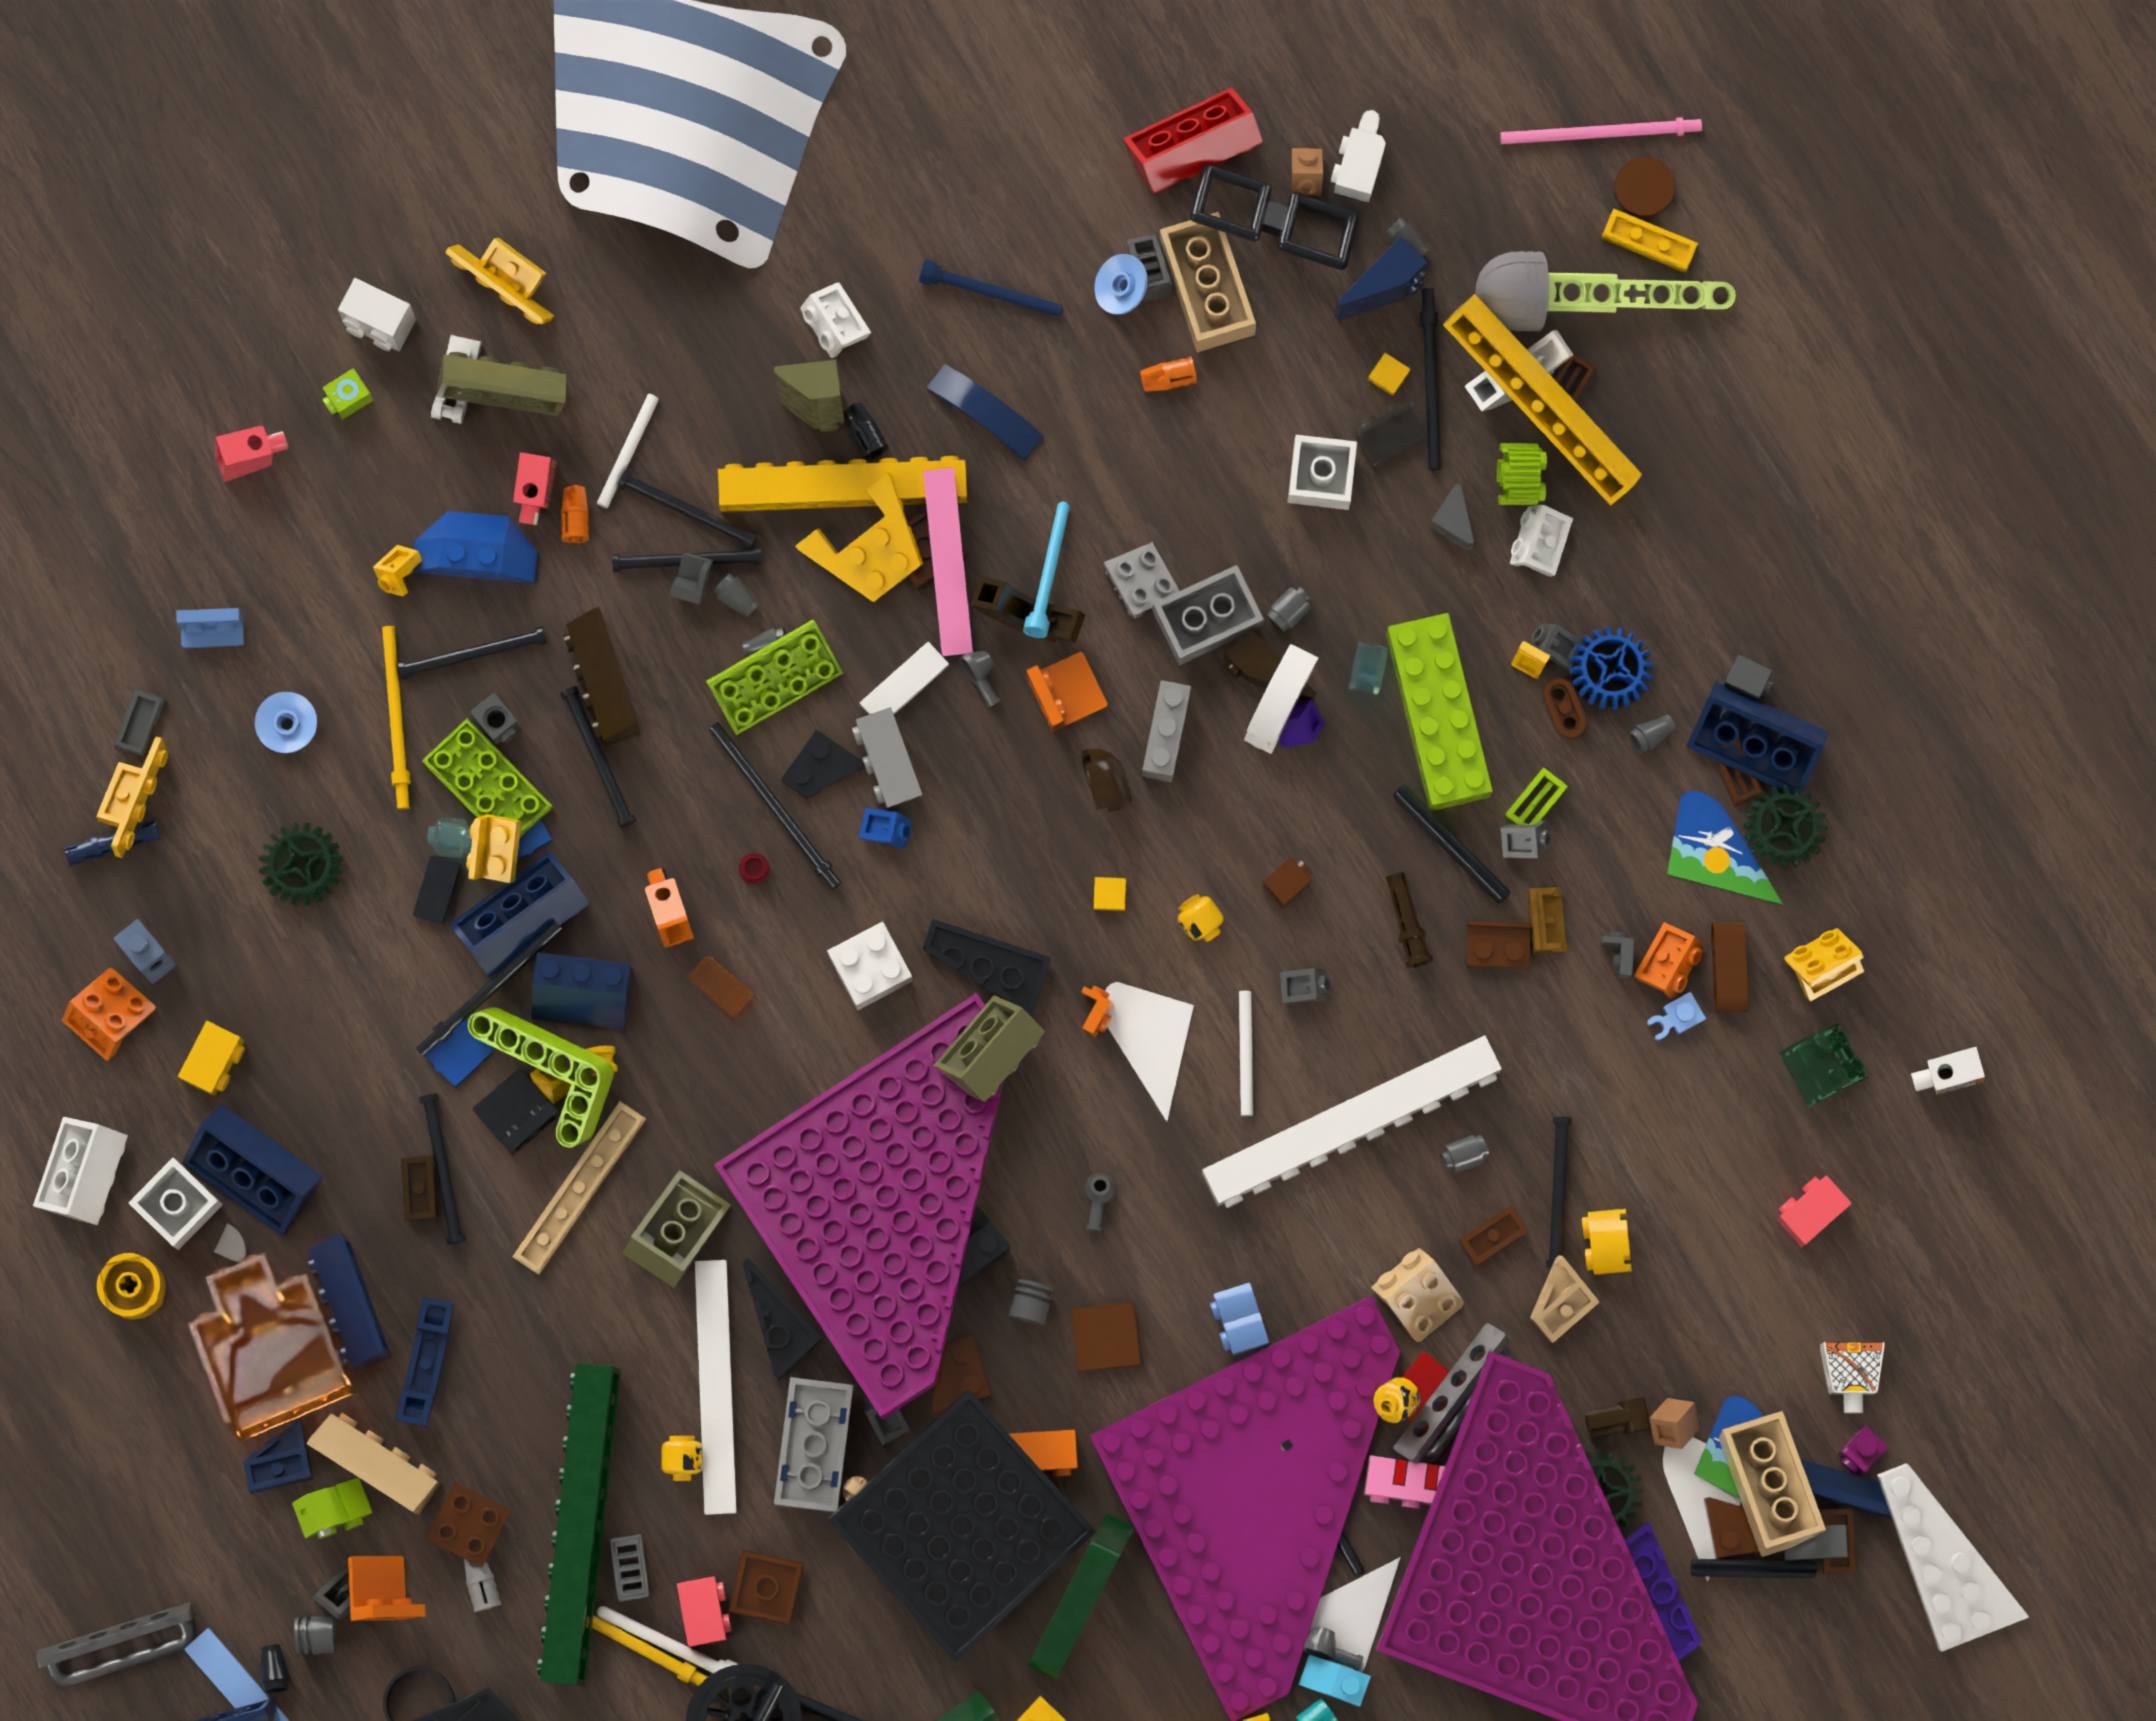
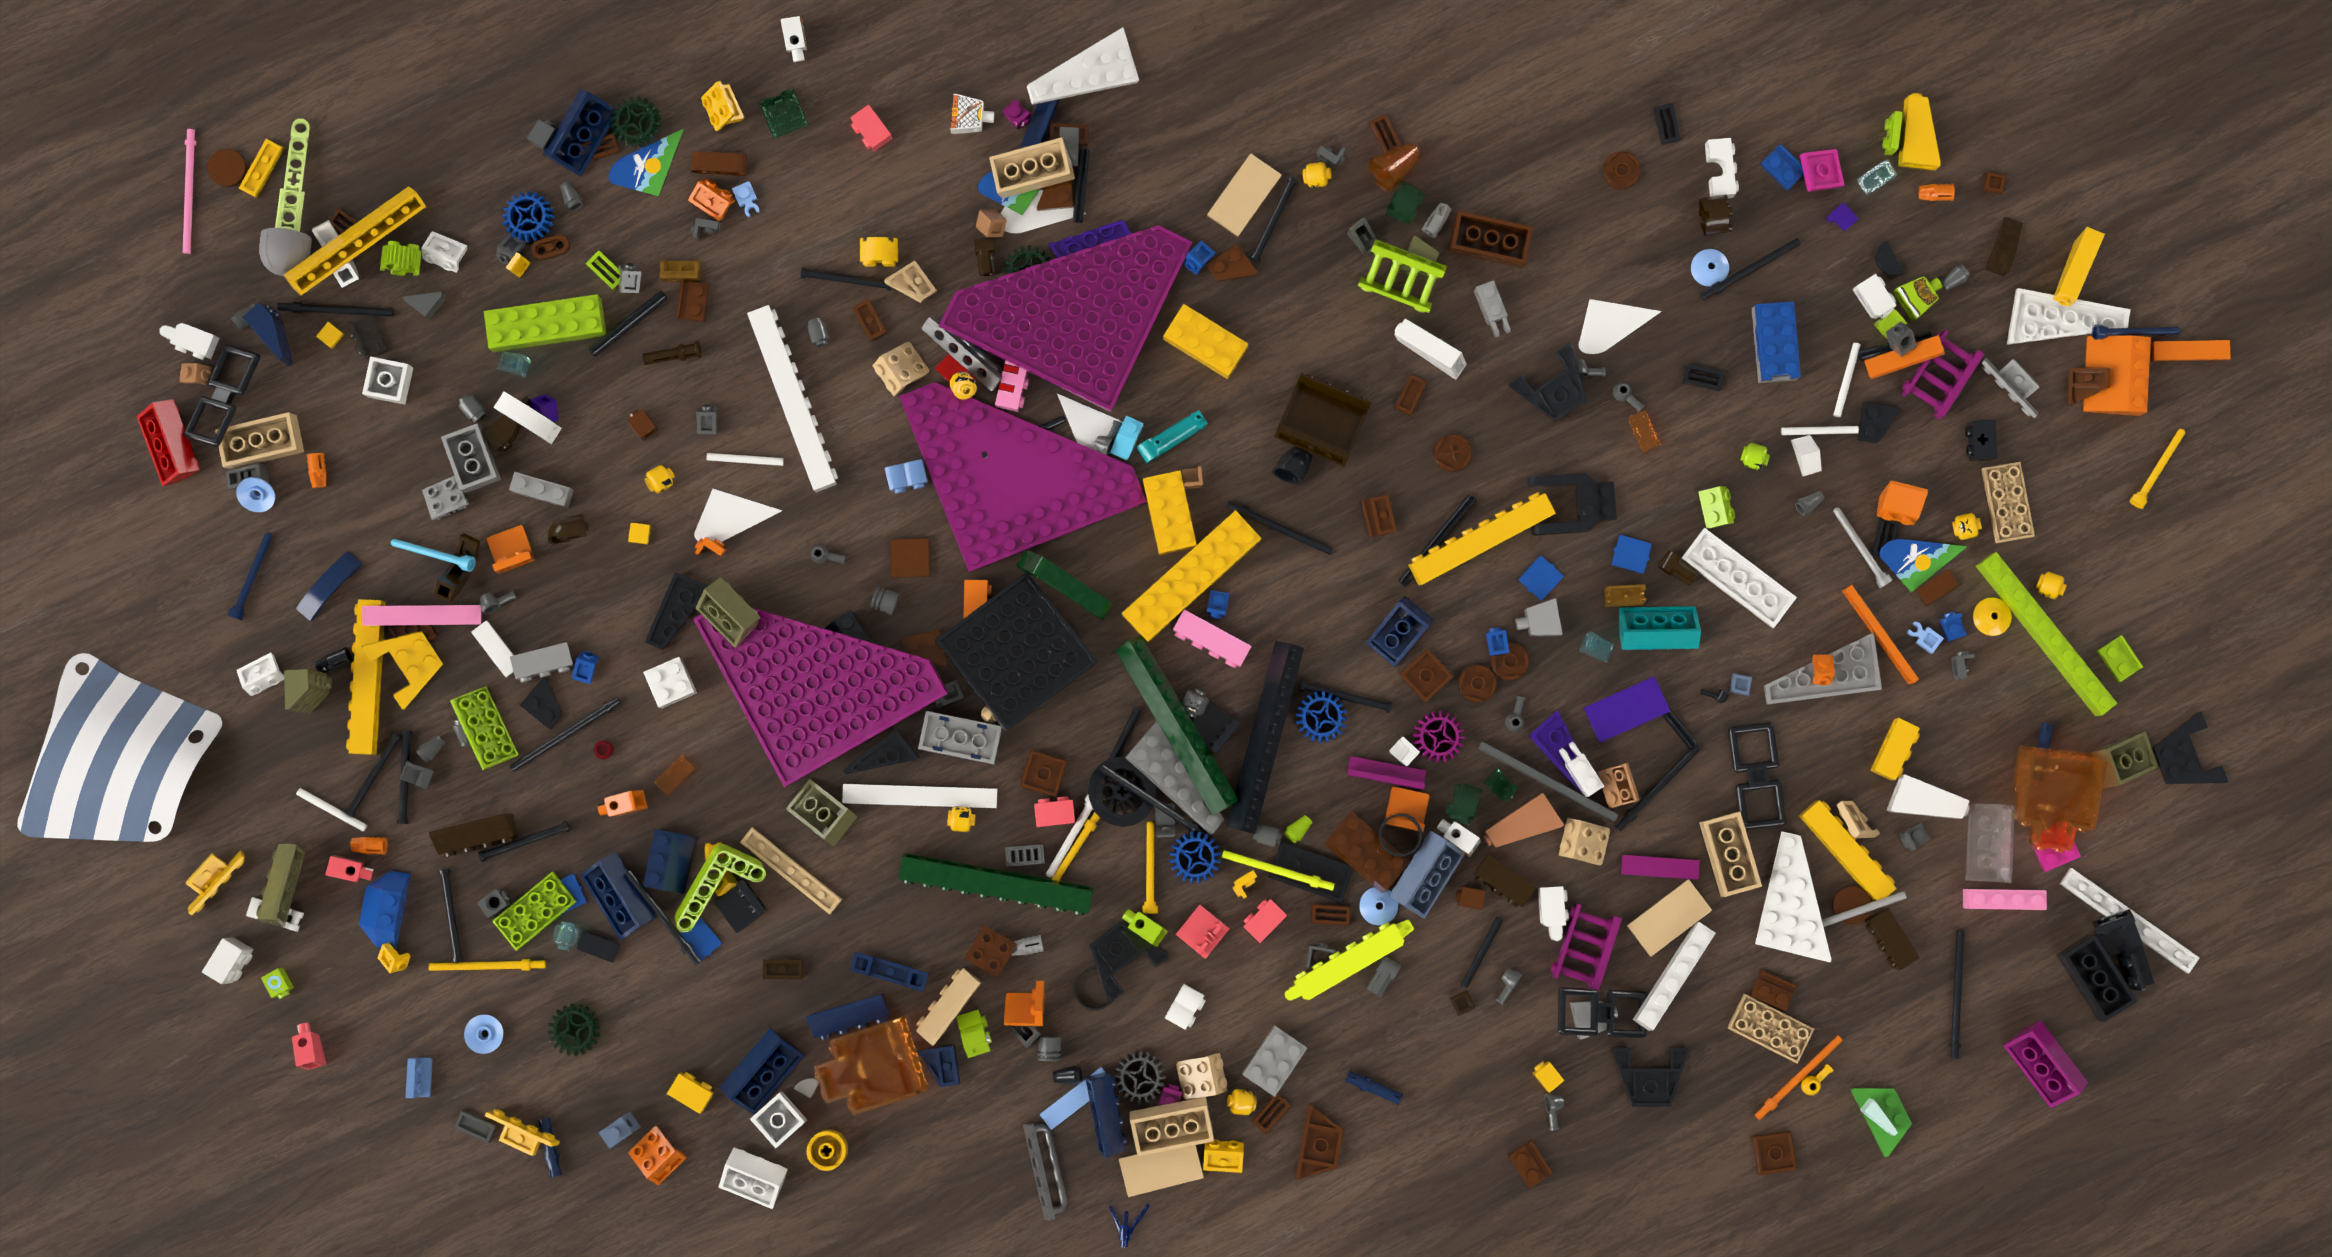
camera: 85 degrees left, 5 degrees up
(442, 1169) = (771, 954): black bar -> none
(494, 848) = (575, 908): yellow bracket -> none

